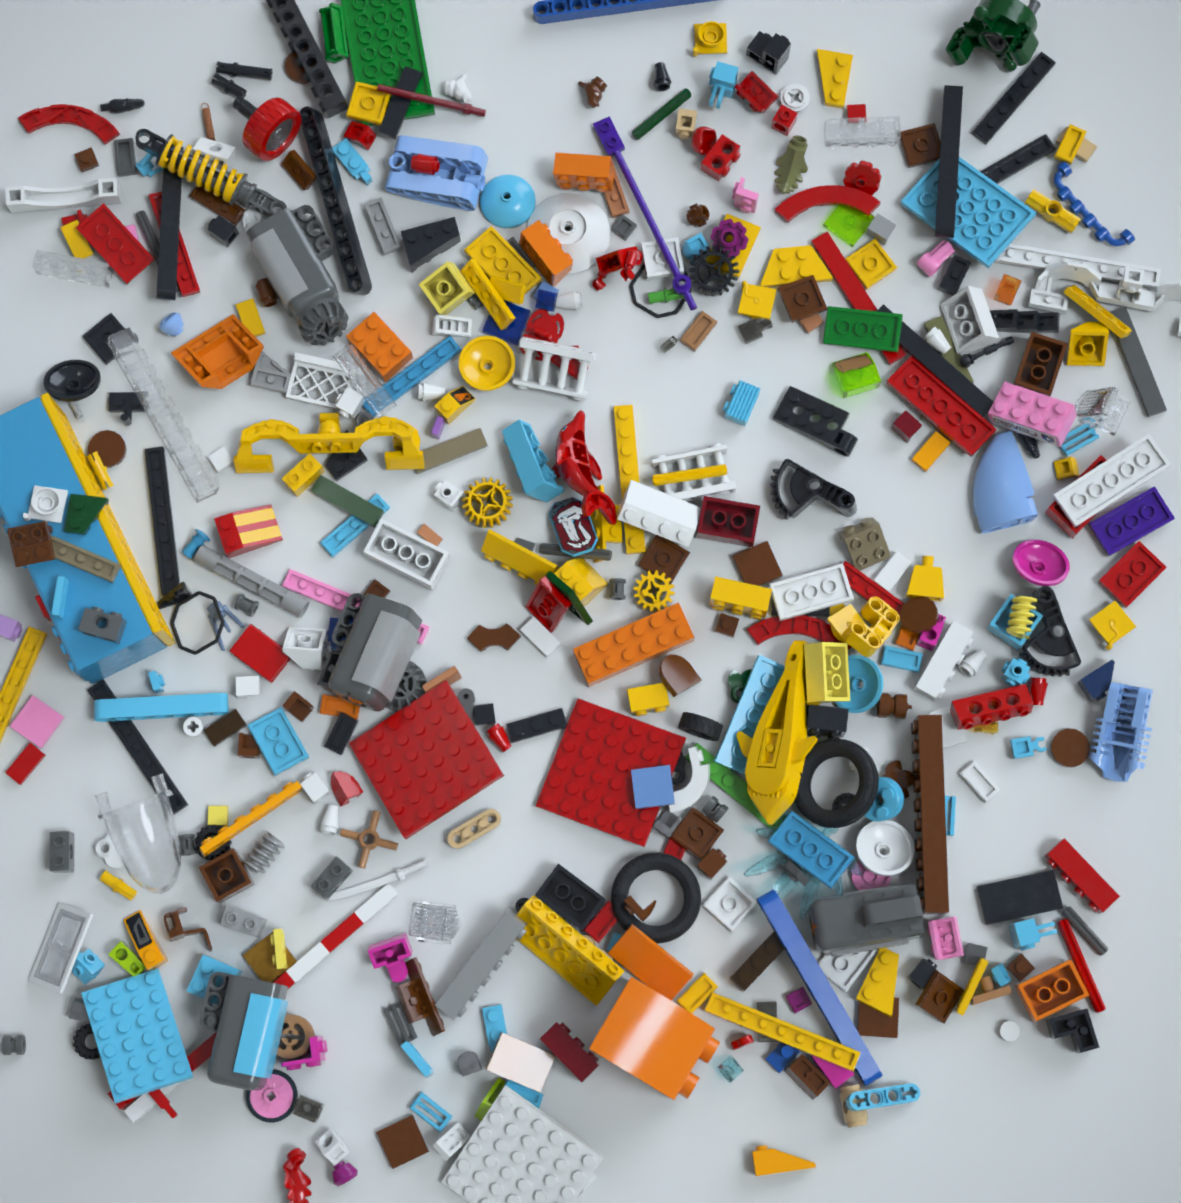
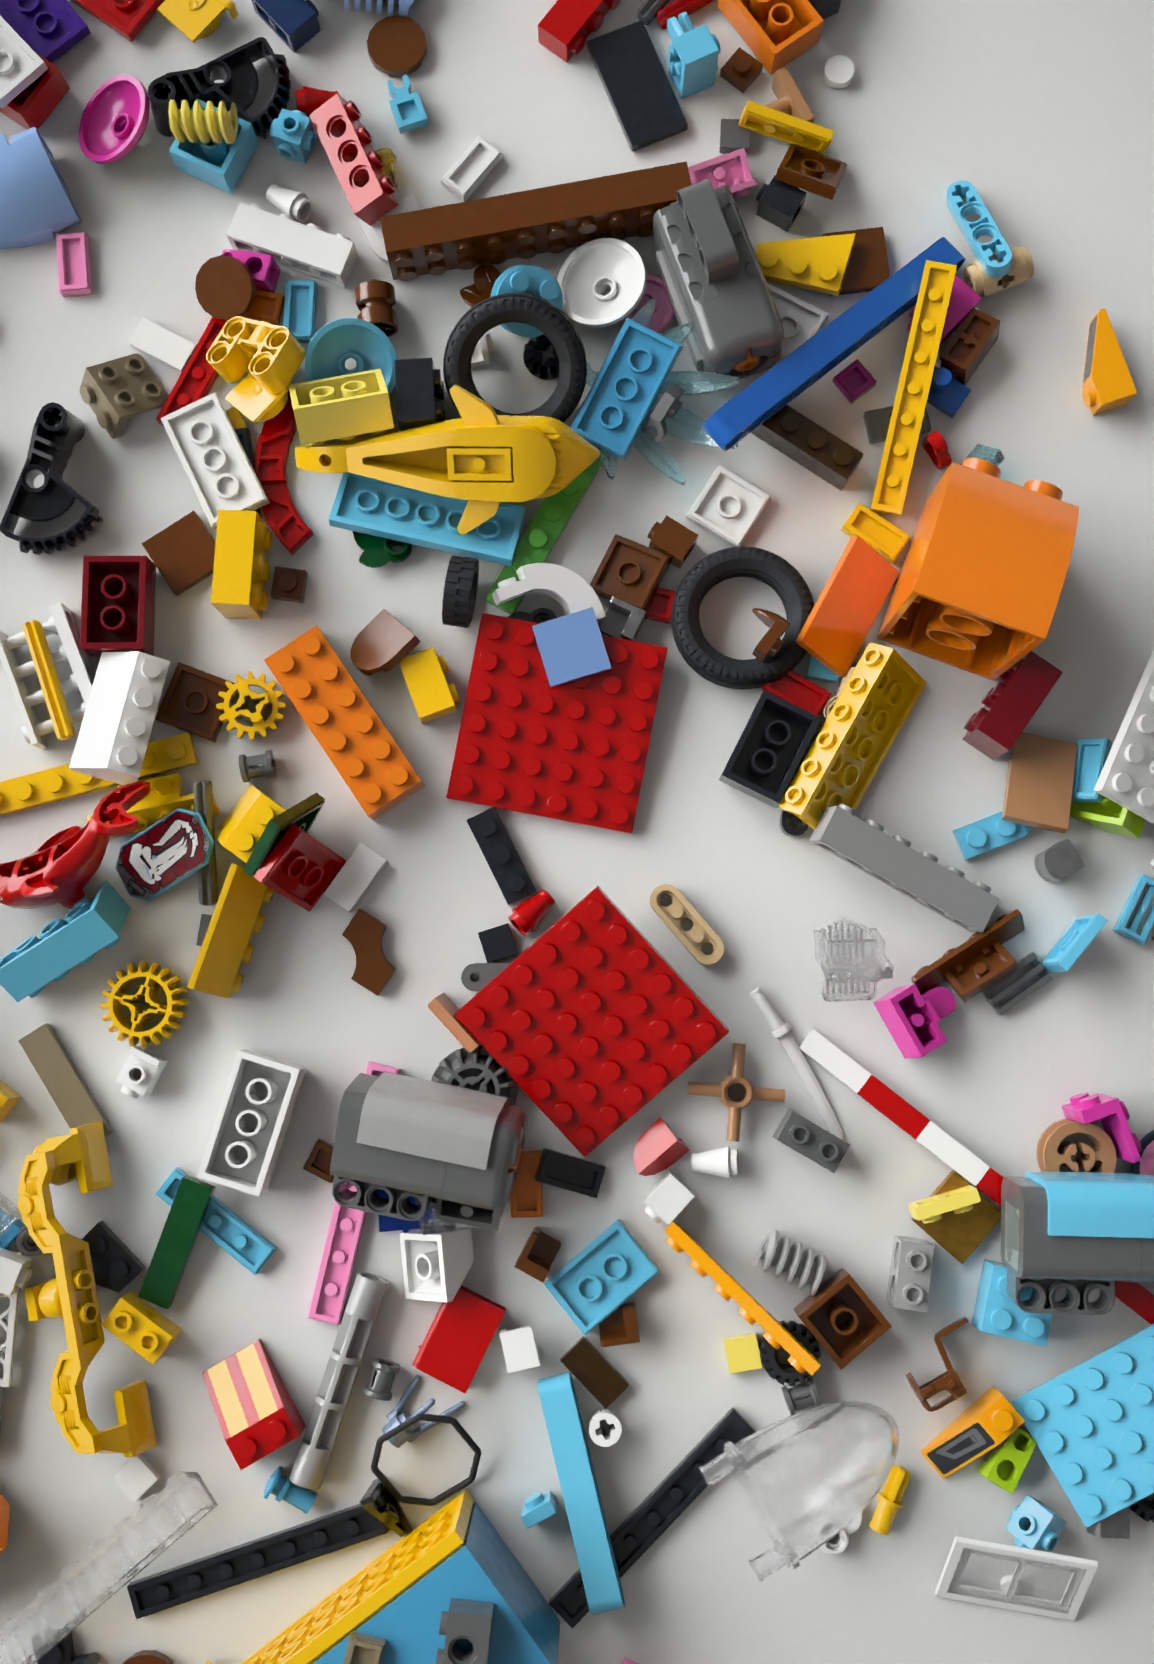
camera: 100 degrees left, 5 degrees up
(62, 852) = (855, 1612): dark grey brick -> none
(429, 535) = (214, 1091): nougat piece -> none
(438, 427) = (27, 1111): medium lavender tile -> none
(718, 813) = (586, 551): dark grey wheel -> none
(926, 581) = (169, 290): yellow torso -> none
(955, 525) = (74, 264): none -> bright pink tile
(1000, 975) = (761, 92): medium azure plate -> none

